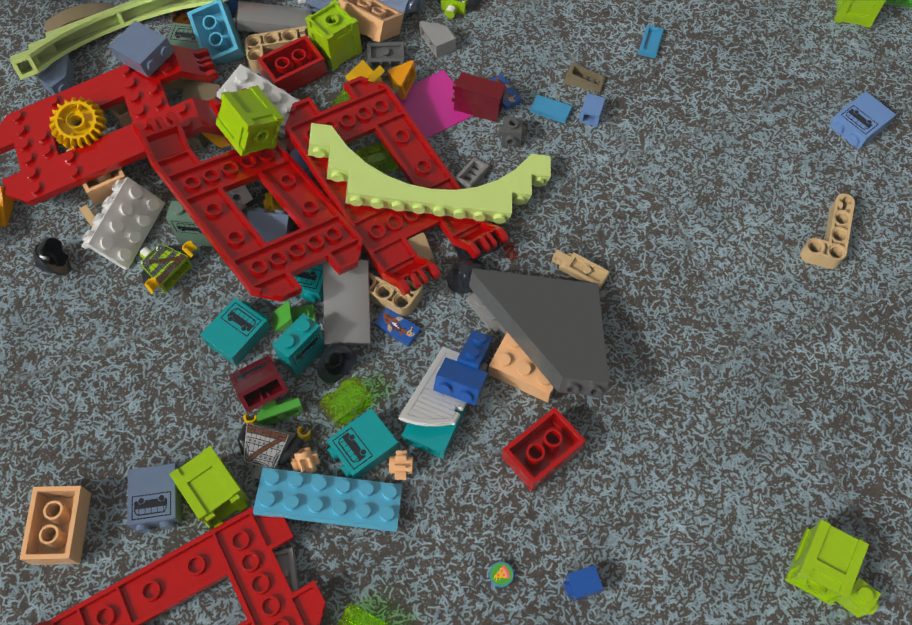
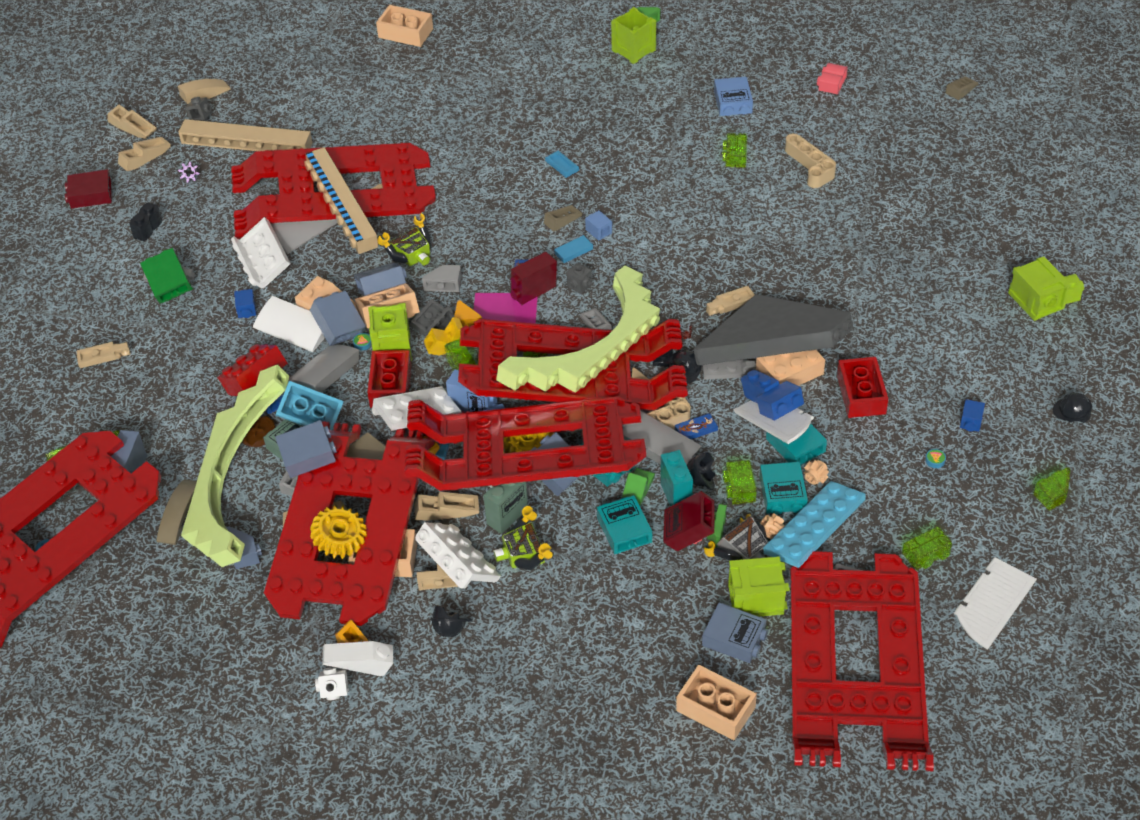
camera: 55 degrees left, 15 degrees down
(249, 120) = (454, 406): lime container -> none
(263, 43) = (351, 379): tan beam -> none
(788, 162) = (735, 150): none -> clear neon green brick

